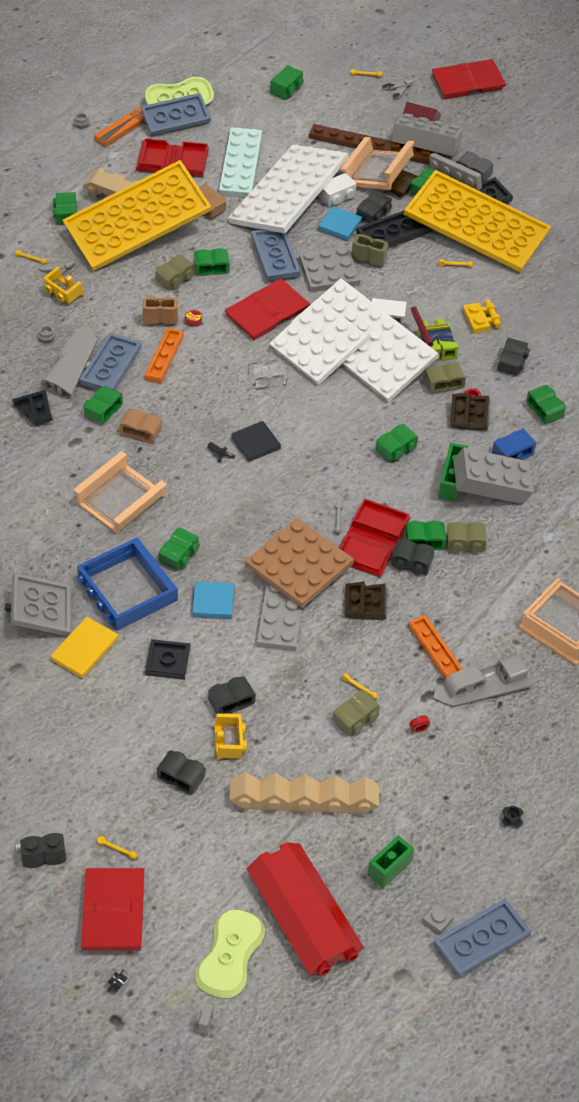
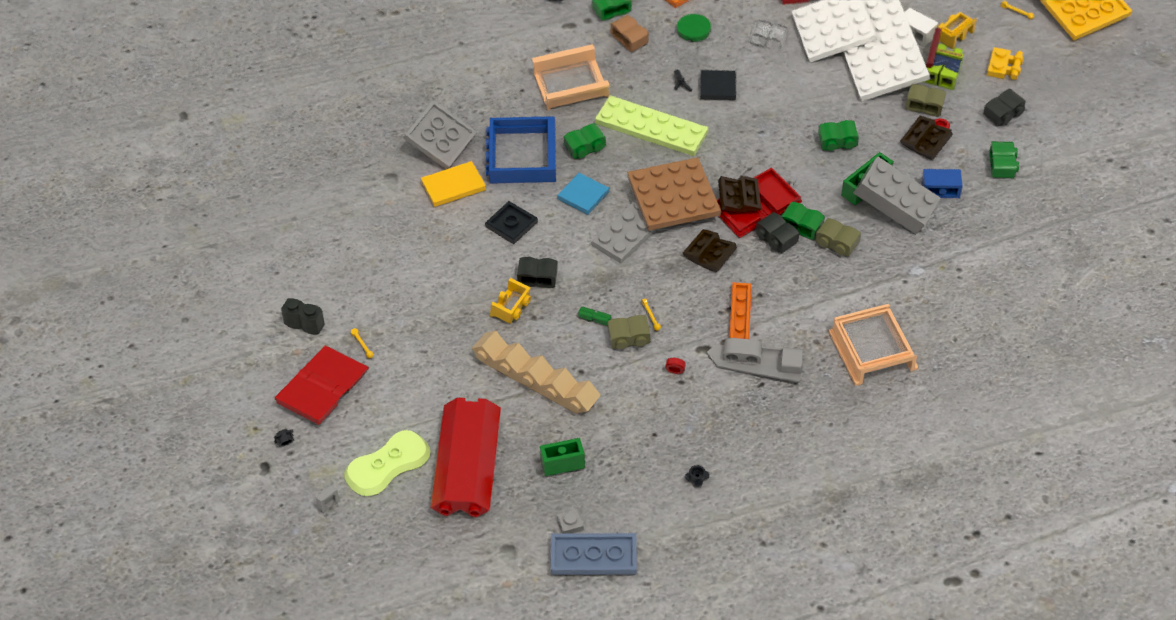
camera: 35 degrees right, 0 degrees up
(181, 772) = (452, 310): pearl dark grey brick -> none
(193, 395) = (693, 27): none -> green tile
(225, 506) = (651, 125): none -> yellowish green plate
(316, 711) = (590, 314): none -> green piece
(356, 536) = (739, 194): none -> dark brown slope
(422, 298) = (956, 27): none -> yellow window

